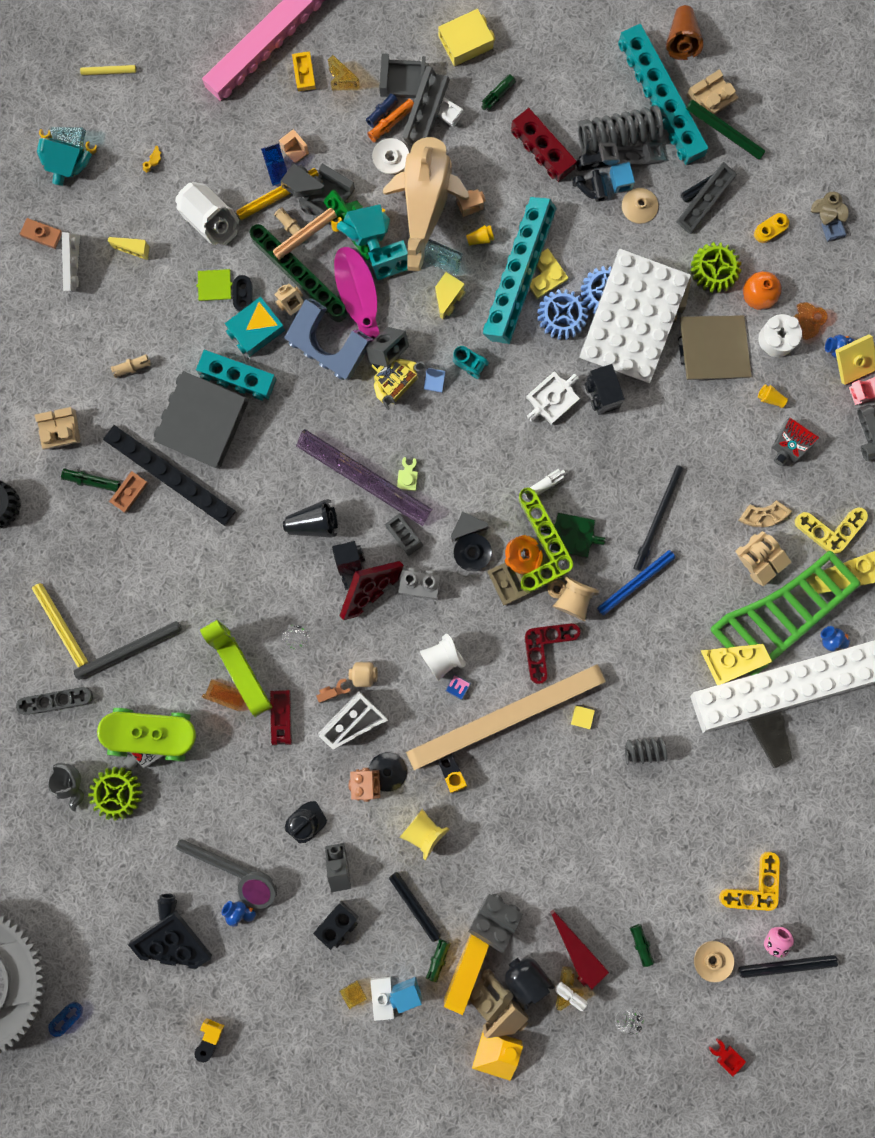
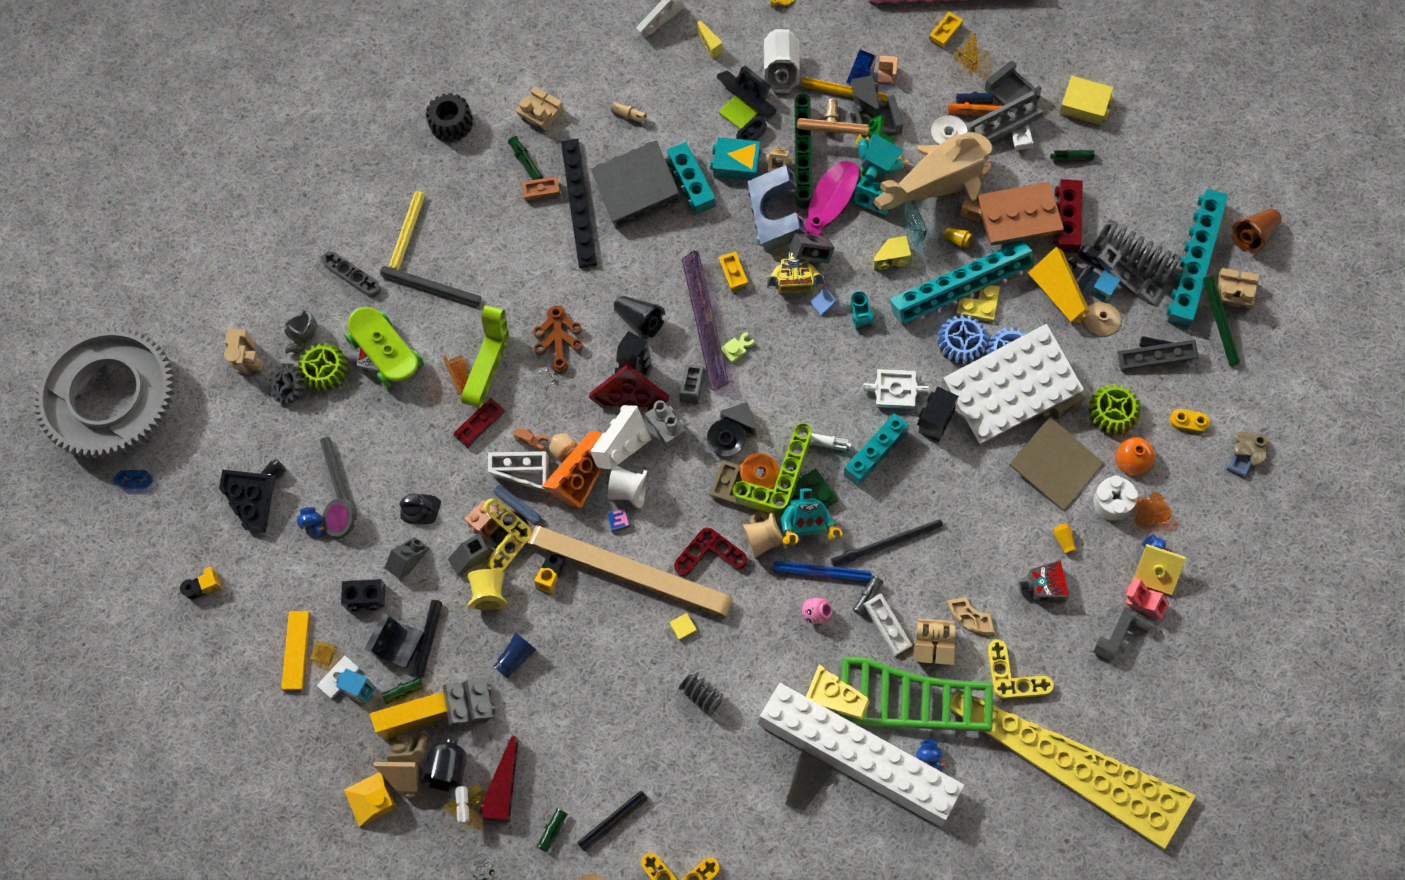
camera: 50 degrees right, 15 degrees down
(38, 848) = (239, 353): none -> tan hips
(103, 833) = (287, 383): none -> dark grey gear
(205, 259) = (750, 88): none -> black bracket
(266, 594) = (557, 335): none -> dark orange plant
(330, 1012) = (295, 650): none -> yellow tile
(344, 419) = (733, 271): none -> yellow plate
(376, 748) = (517, 504): none -> sand blue axle
(382, 820) = (469, 554): none -> dark grey slope
(396, 679) = (576, 474): none -> orange wedge
(397, 934) = (394, 641): none -> black bracket
(398, 776) = (513, 536): none -> light yellow beam
(405, 629) = (621, 439): none -> white wedge
(491, 857) = (514, 655): none -> dark blue plant
(511, 176) = (1020, 213): none -> nougat plate
(586, 457) = (876, 450): none -> teal brick
(591, 207) = (1059, 283): none -> yellow slope
(592, 557) = (807, 517): none -> teal torso
(664, 615) = (816, 611): none -> bright pink head
(674, 897) = (612, 821): none -> black axle
(684, 569) = (874, 584): none -> dark grey pin
(718, 576) = (887, 624): none -> white tile

